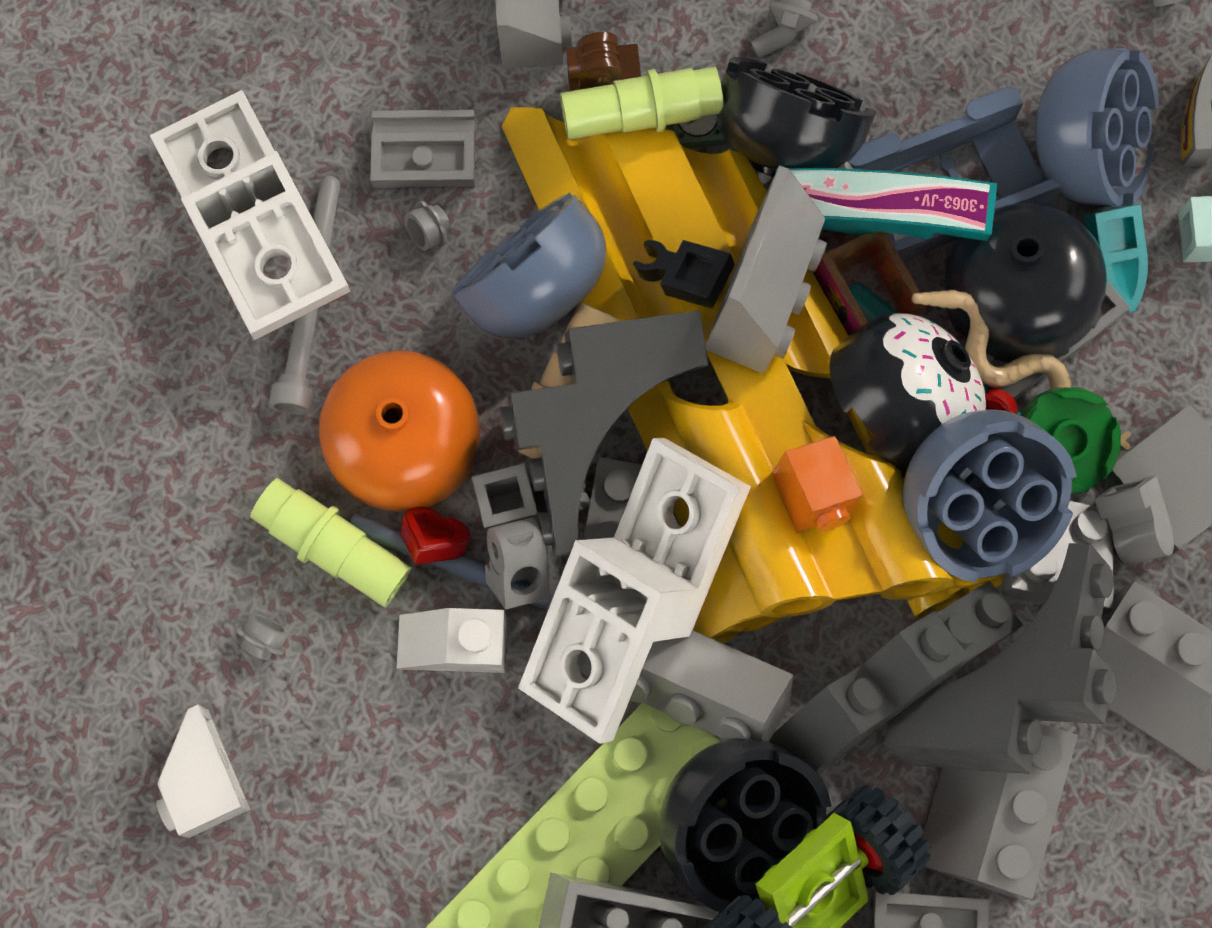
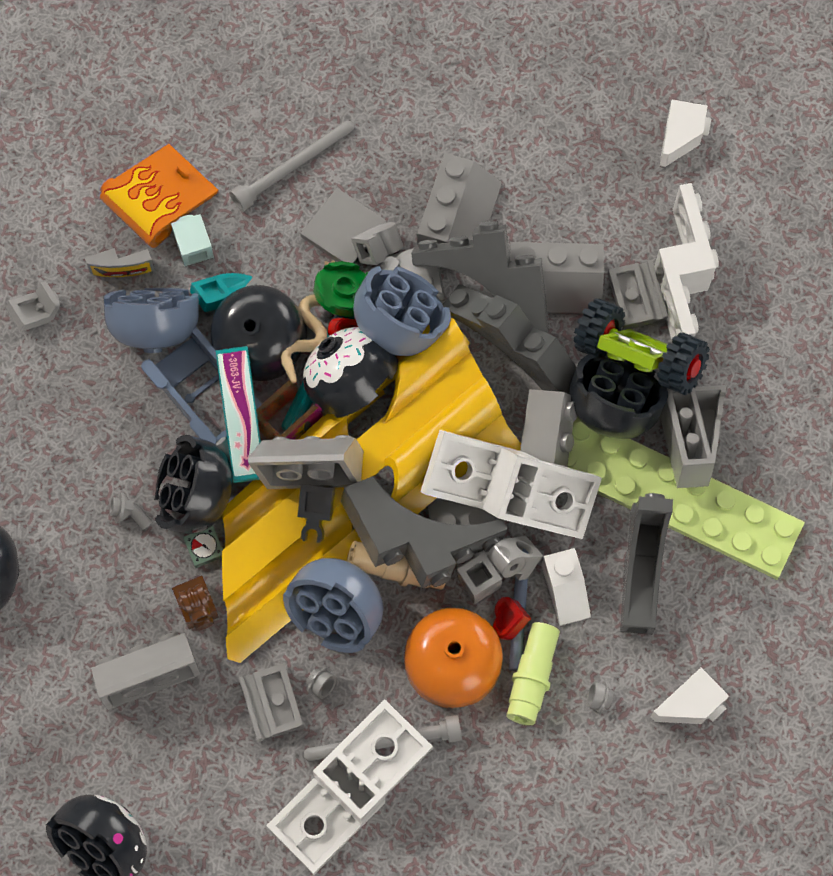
camera: 110 degrees left, 5 degrees down
(438, 768) = (643, 562): none -> dark grey arch
(642, 102) = (214, 568): yellowish green piece -> none
(817, 485) = (426, 397): orange brick -> none

